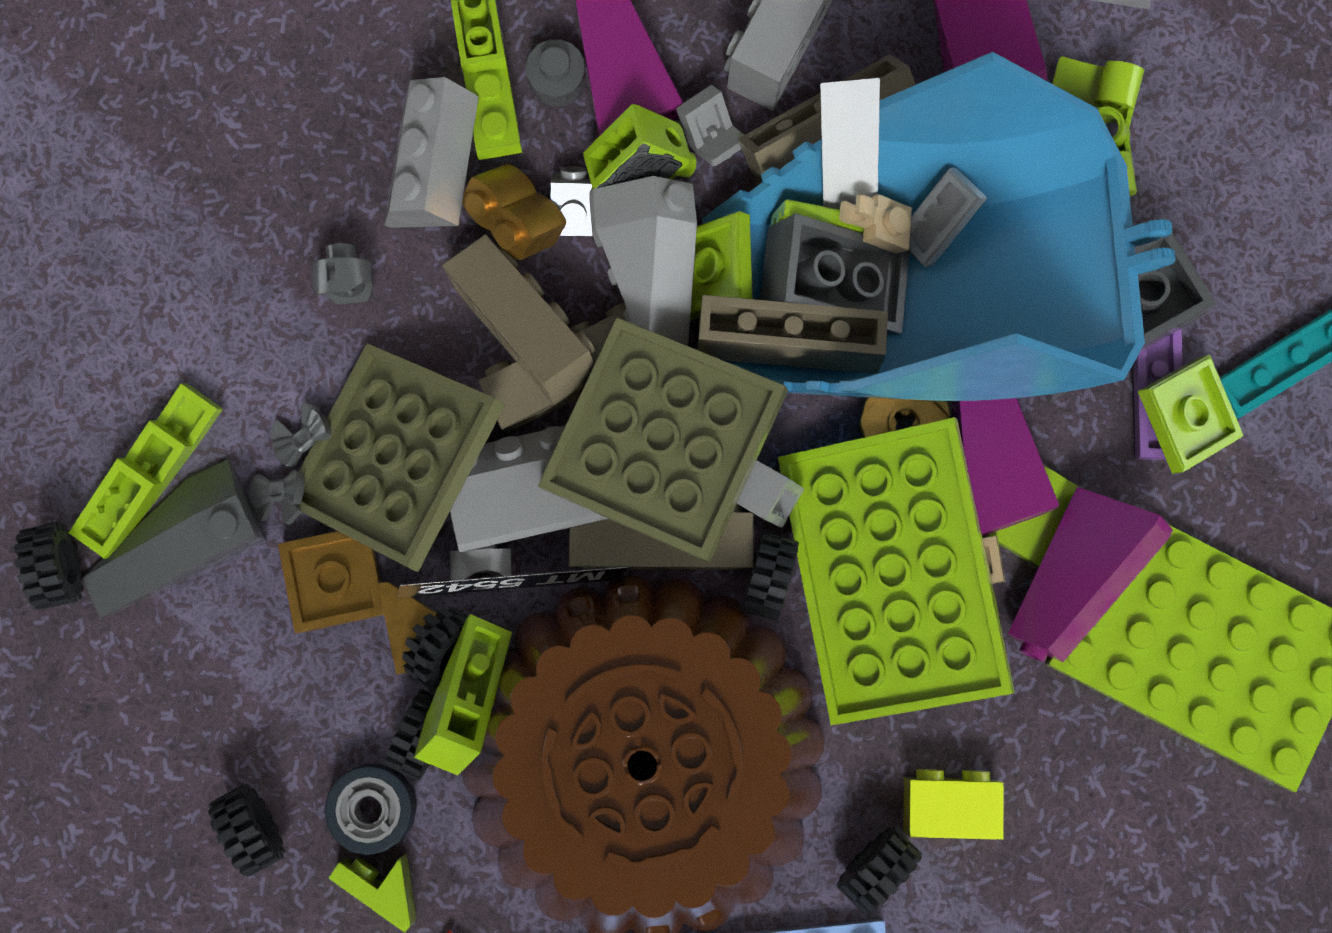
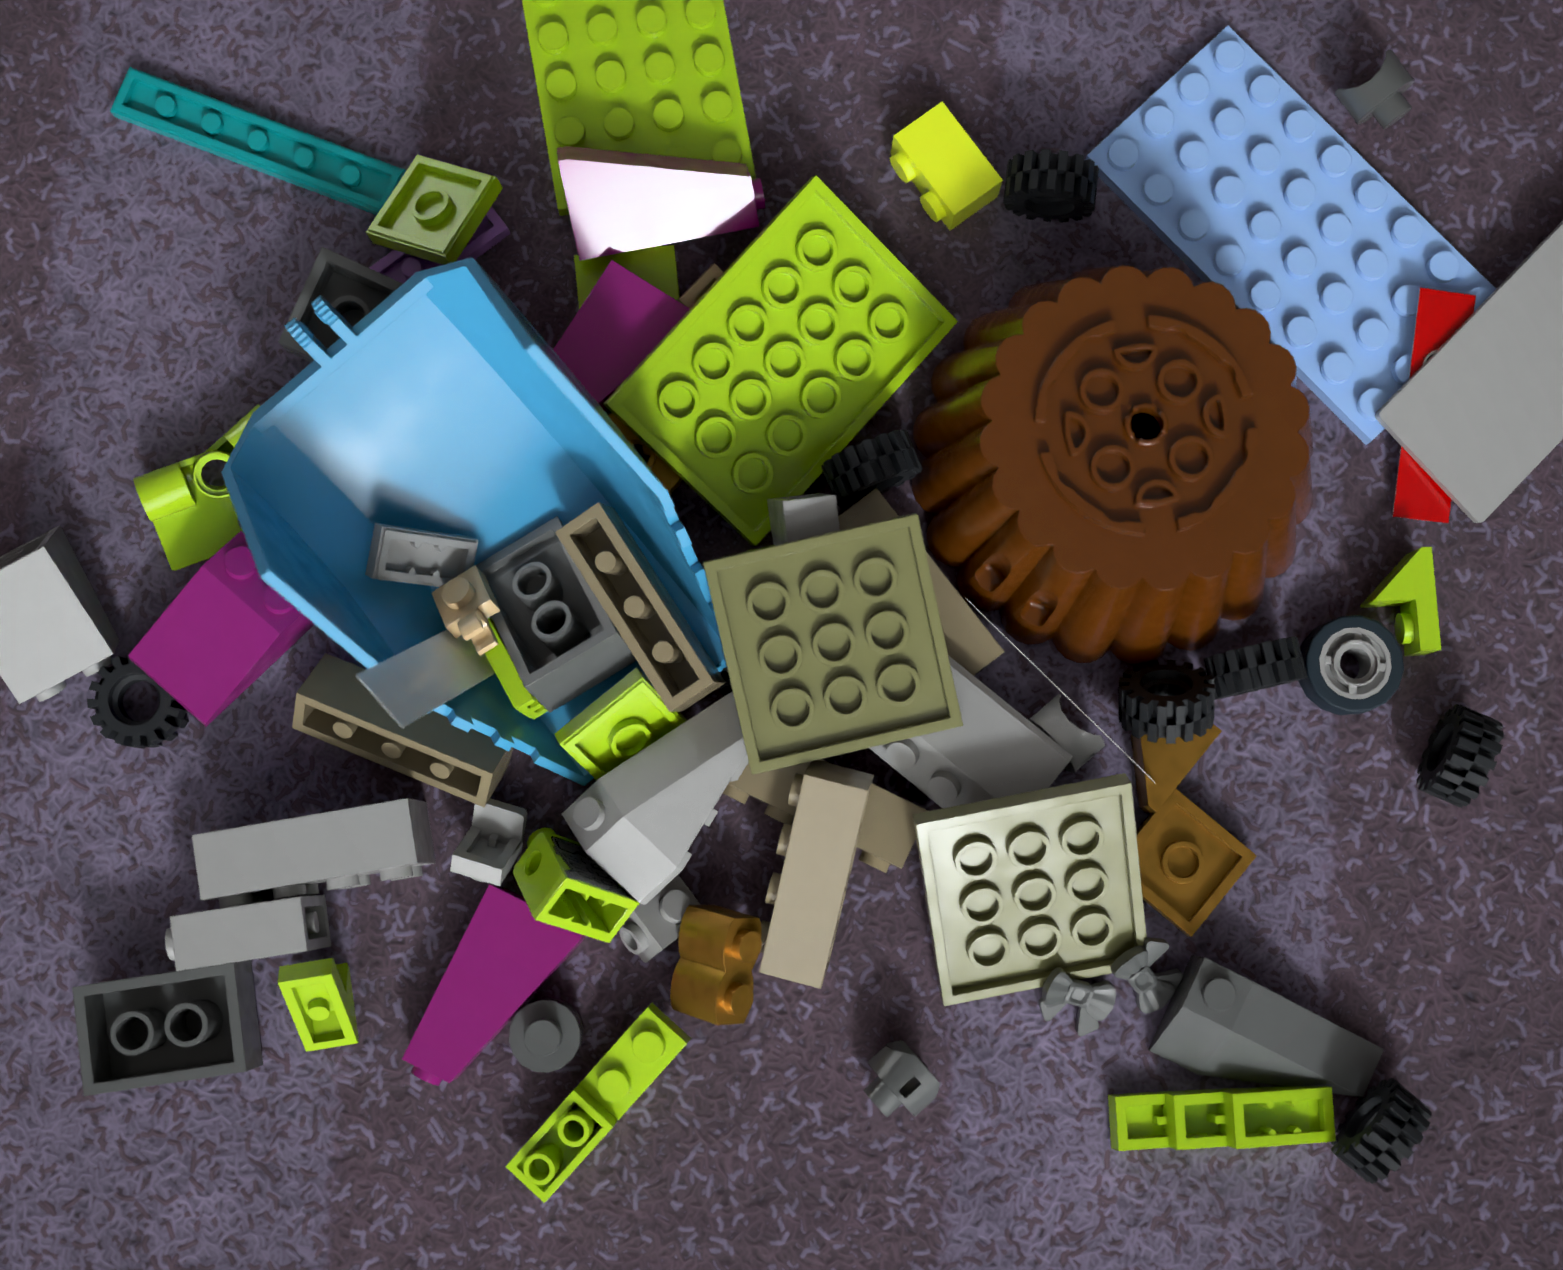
camera: 125 degrees left, 0 degrees up
(431, 154) = (723, 1085): light grey slope -> none
(464, 698) = (1200, 642): lime slope -> none

